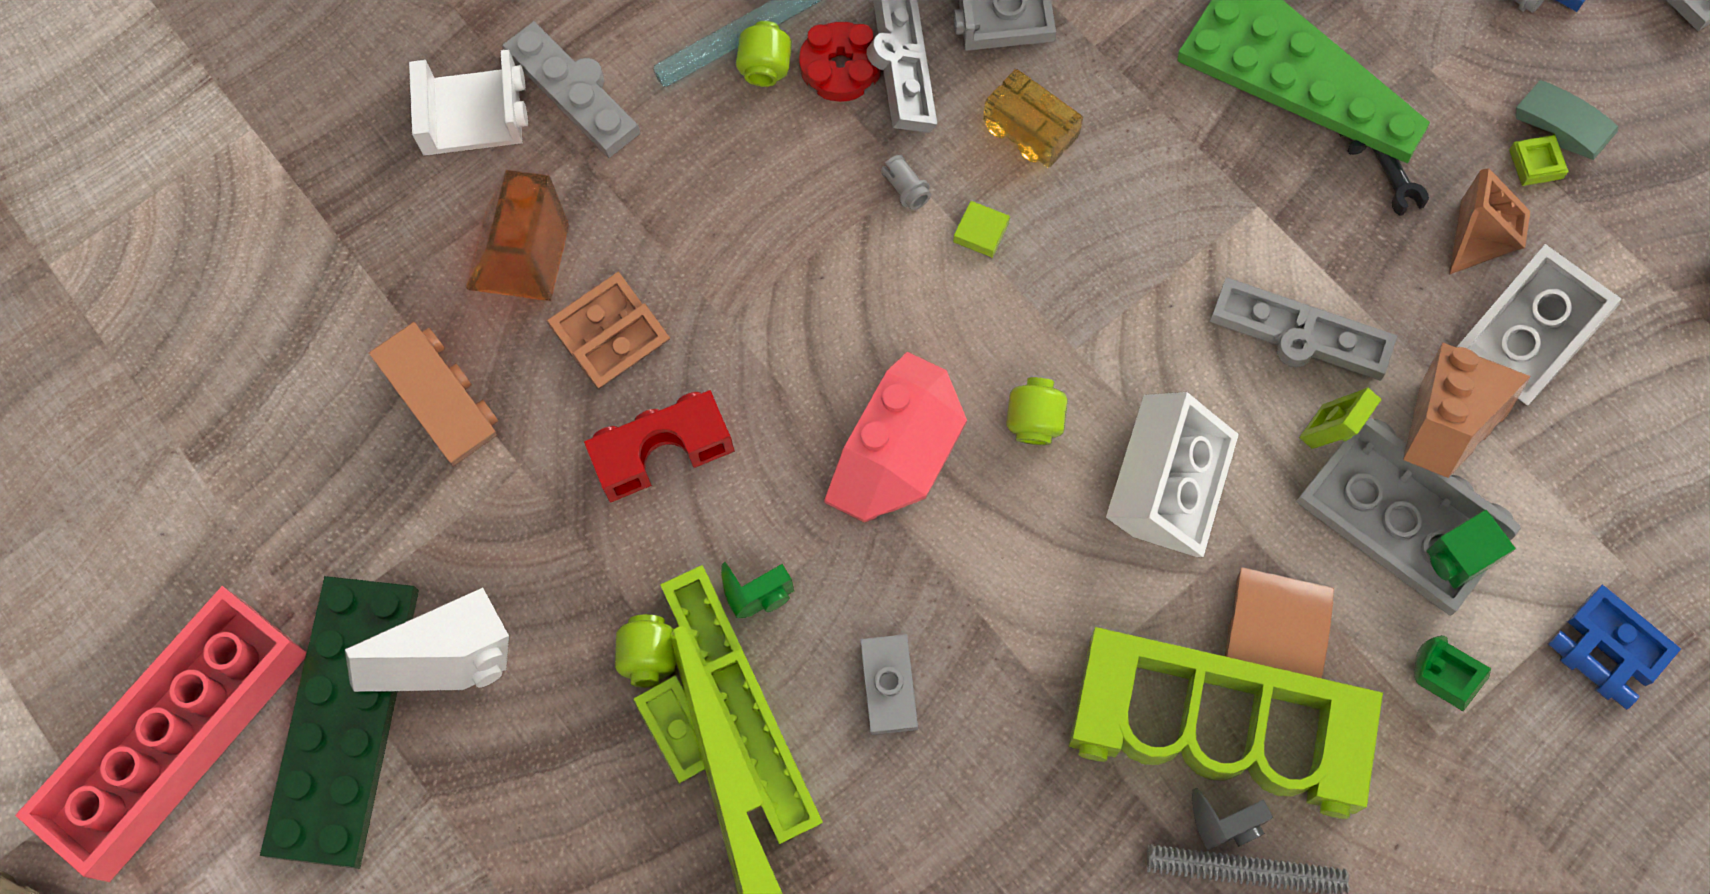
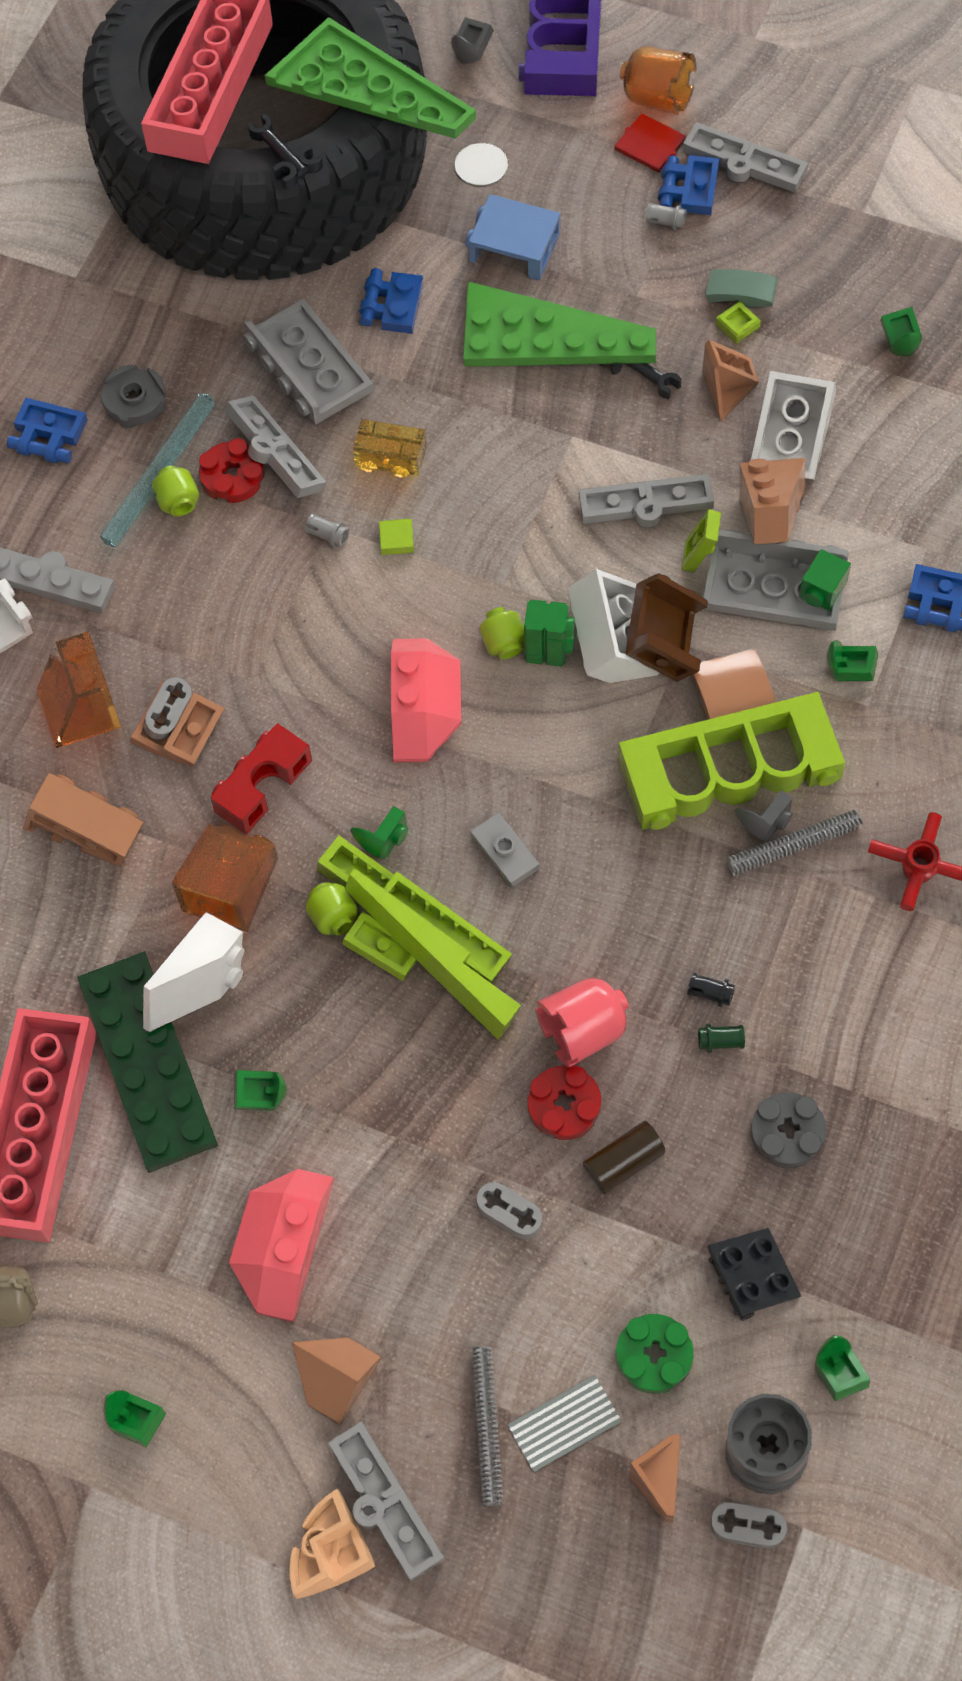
camera: 30 degrees left, 5 degrees down
(435, 831) = (258, 1090): none -> green plate
(550, 543) = (225, 875): none -> clear orange slope
(598, 298) = (160, 705): none -> light grey beam
(1086, 441) = (548, 633): none -> green brick
(1233, 505) = (664, 626): none -> reddish brown panel

